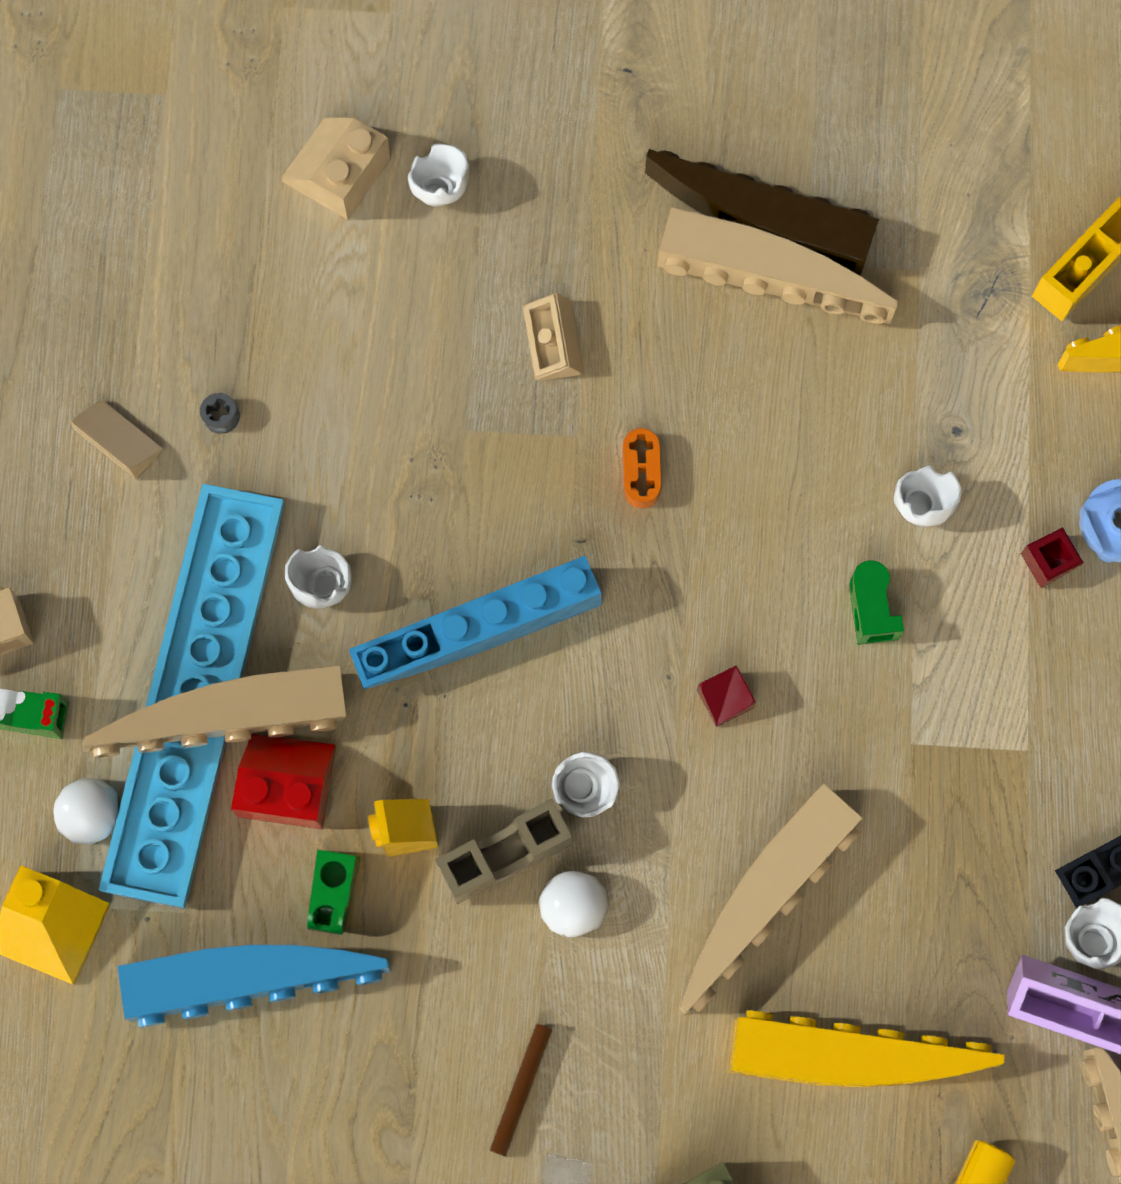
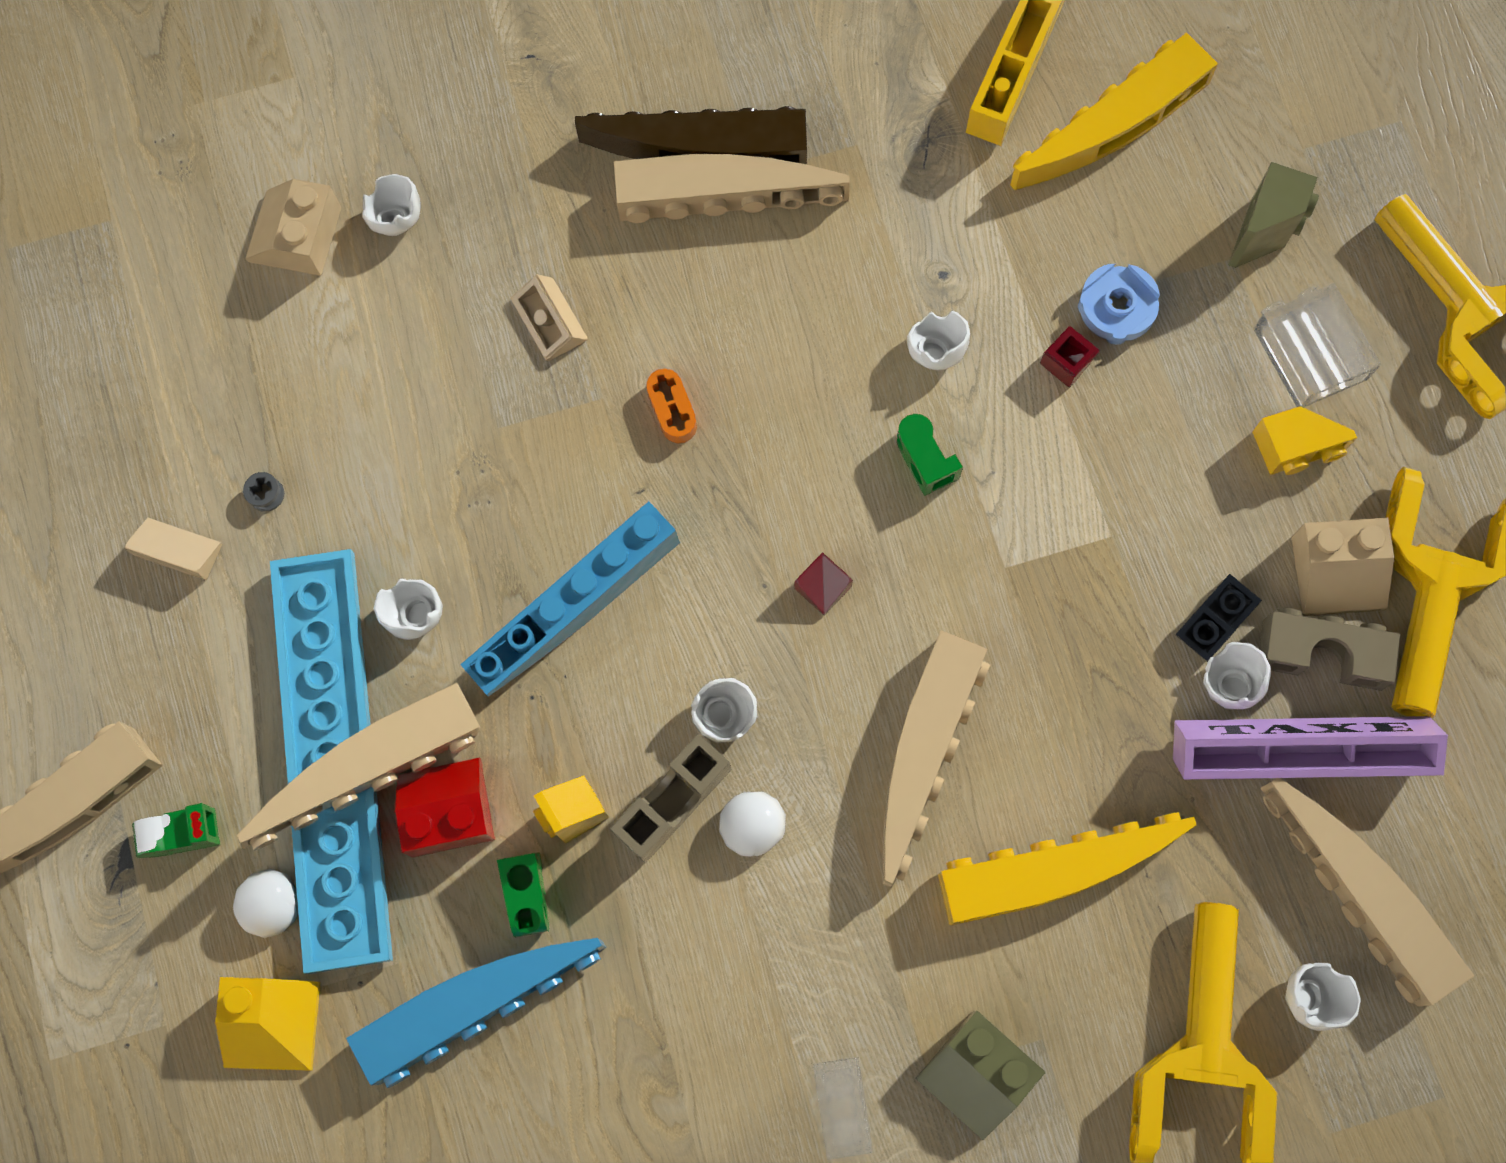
camera: 15 degrees left, 0 degrees up
(520, 1090) = (765, 1012): reddish brown bar -> none

